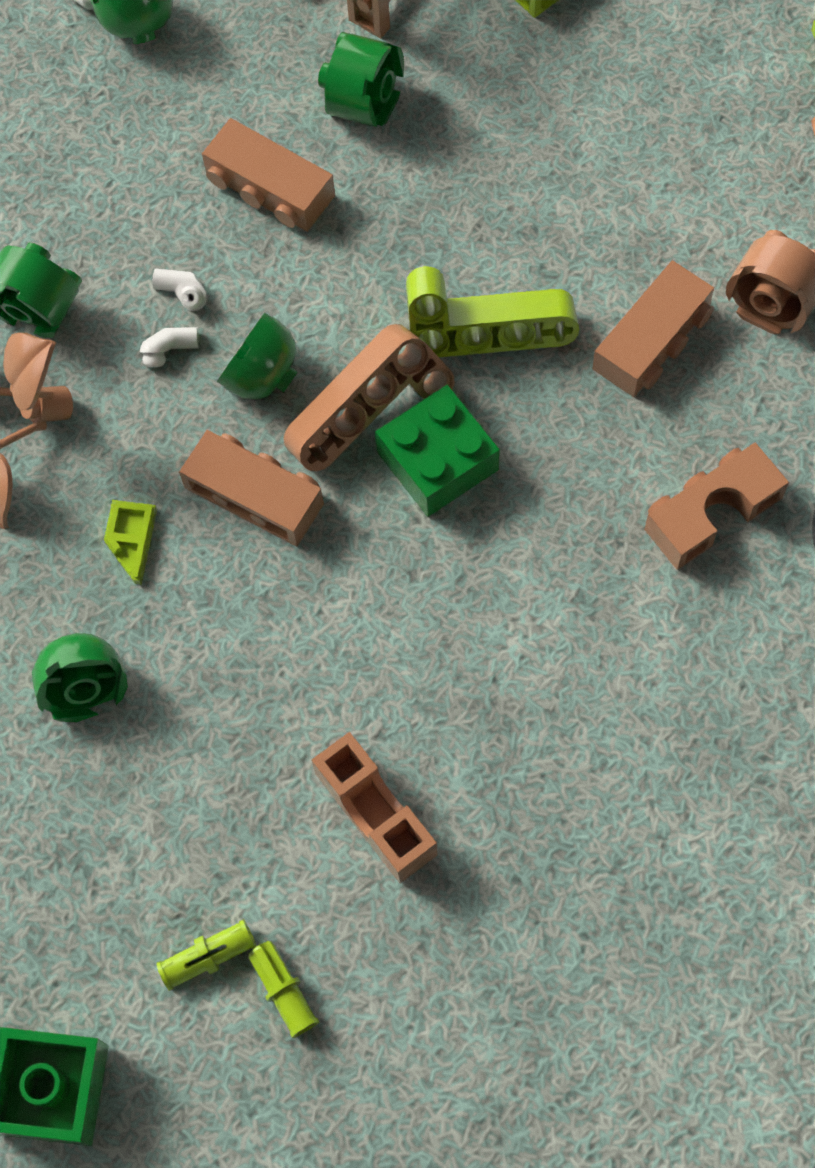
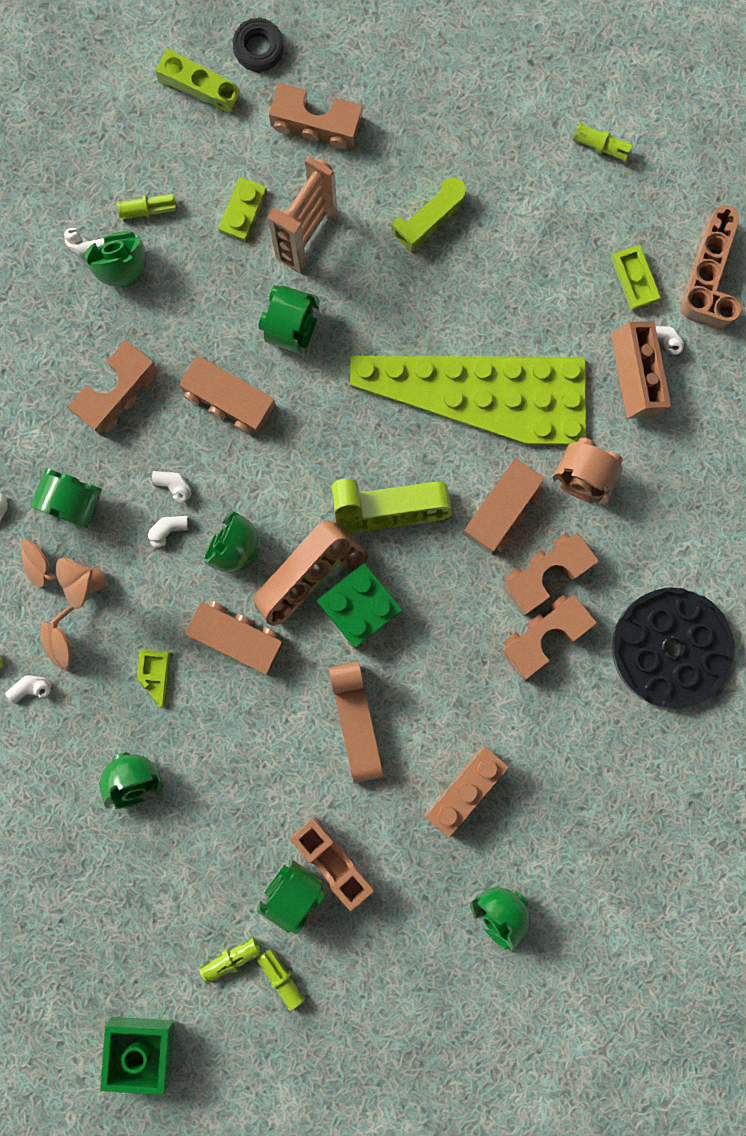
camera: 10 degrees left, 15 degrees up
(90, 185) = (100, 409): none -> nougat arch
(307, 852) = (291, 897): none -> green brick
(423, 605) = (356, 722): none -> nougat beam
(585, 715) = (466, 791): none -> nougat brick
(638, 901) = (503, 915): none -> green cylinder
(671, 195) = (508, 396): none -> lime wing
(746, 396) = (569, 556): none -> nougat arch

